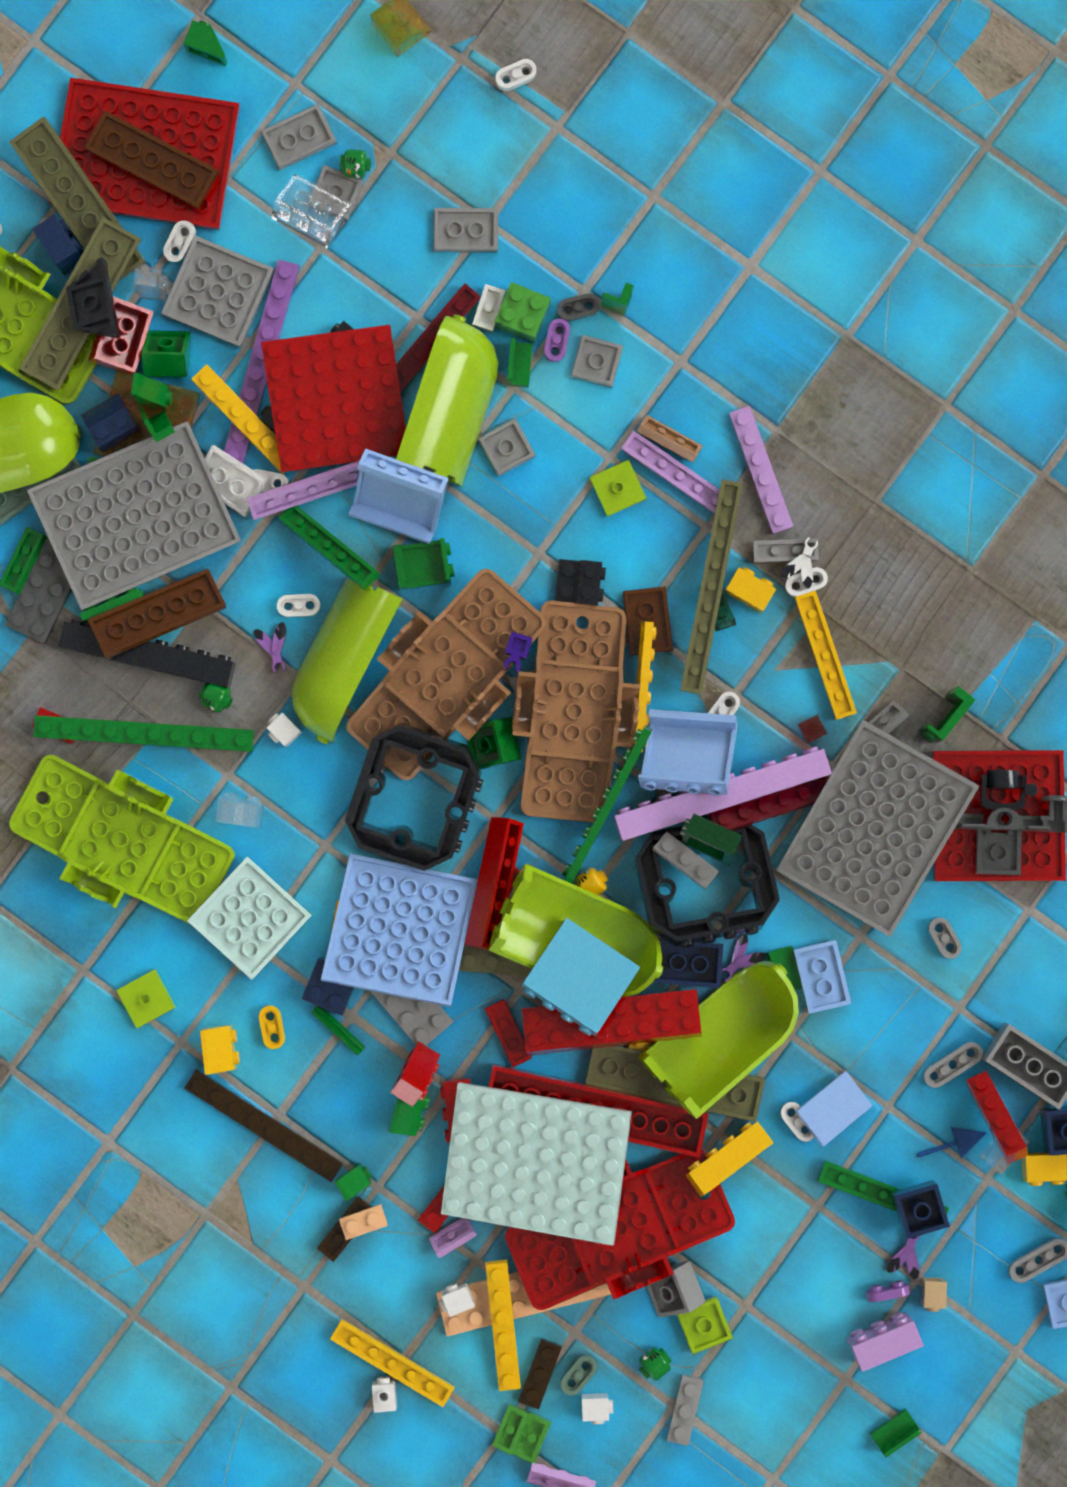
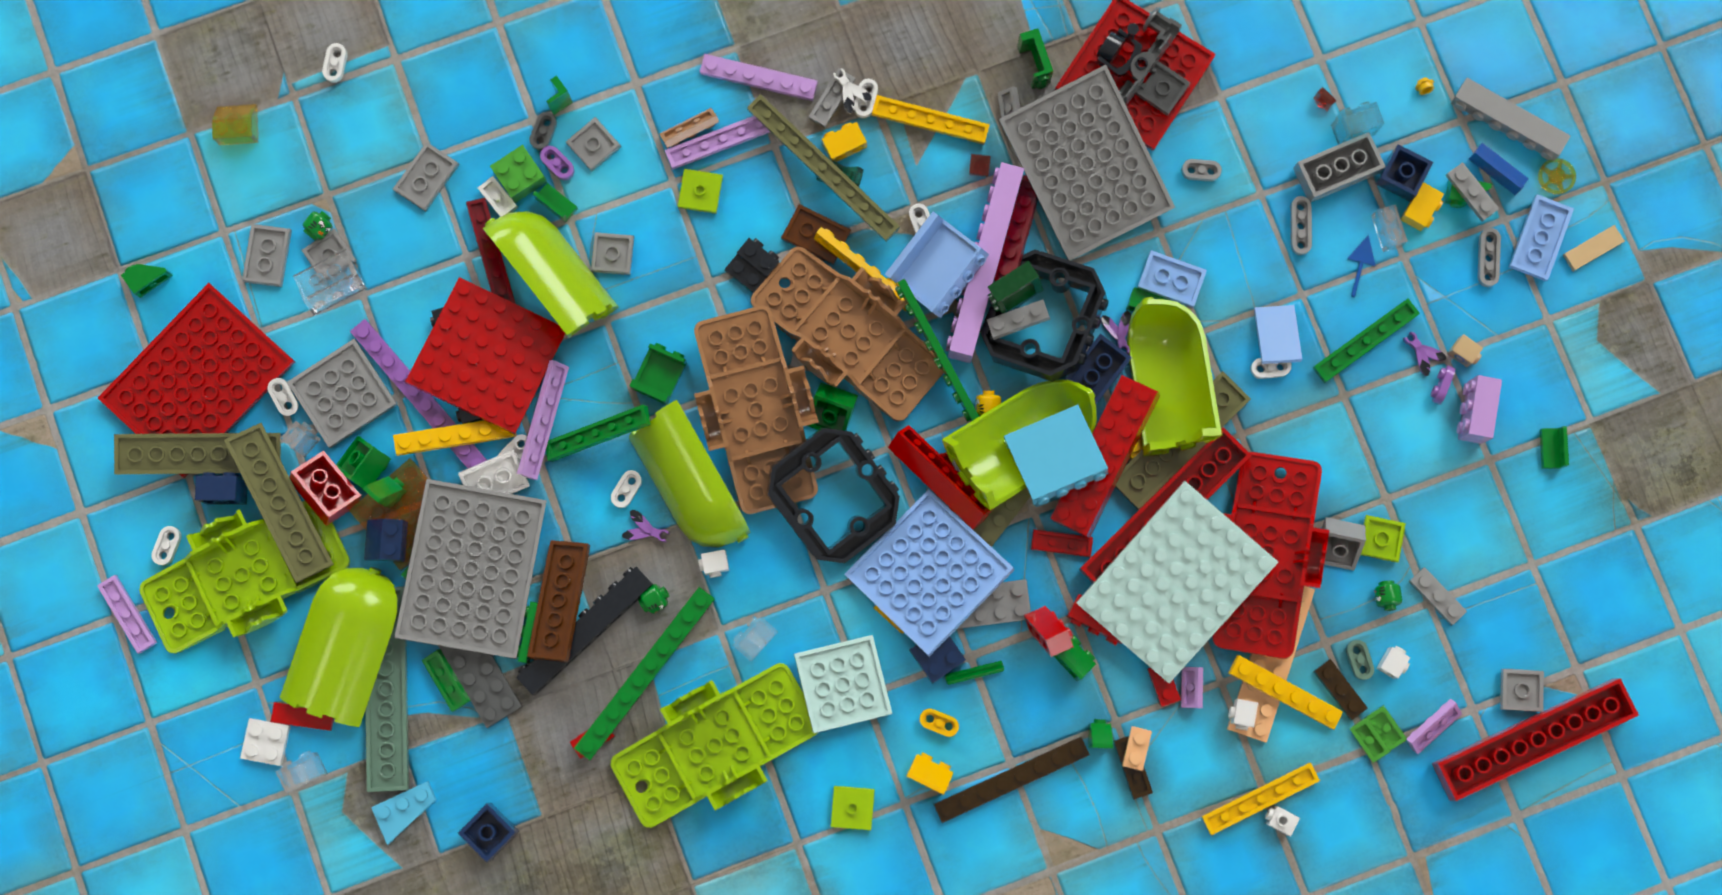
camera: 55 degrees left, 5 degrees down
(93, 302) = (285, 489): black wing -> none
(151, 160) = (205, 376): reddish brown plate -> none
(158, 425) = (413, 503): green panel -> none
(398, 496) = (595, 355): light blue panel -> none
(517, 649) = (774, 339): dark purple plate -> none
(729, 1158) = (1266, 436): yellow brick -> none
(920, 1209) = (1396, 317): dark blue brick -> none
(997, 1117) = (1362, 215): red brick -> none

